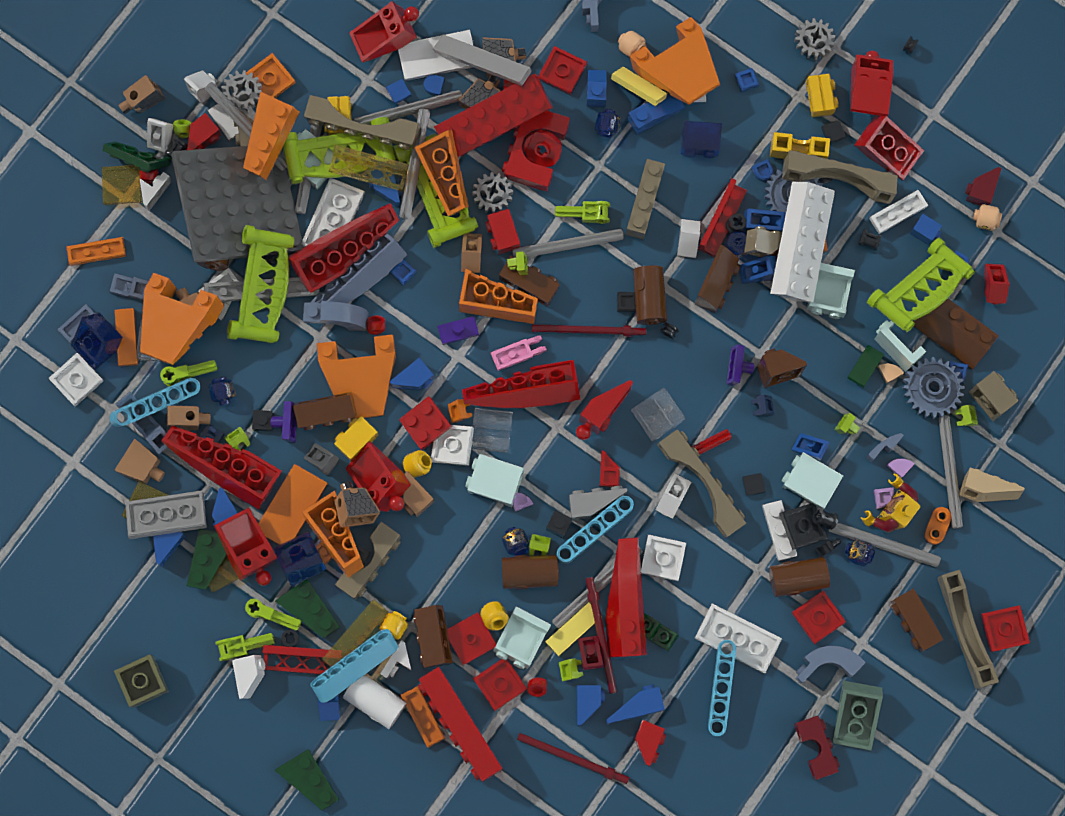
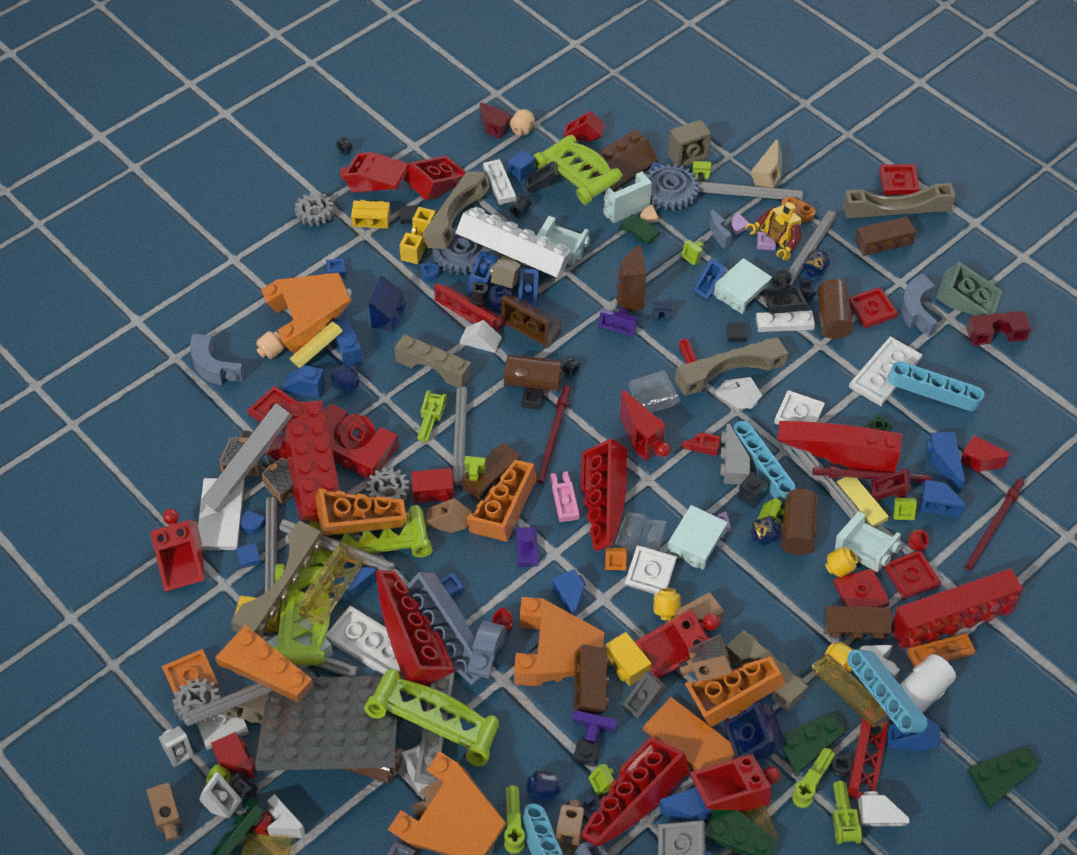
camera: 75 degrees left, 25 degrees down
(425, 423) = (622, 590): red plate -> none
(911, 252) = (541, 177): none -> black tile

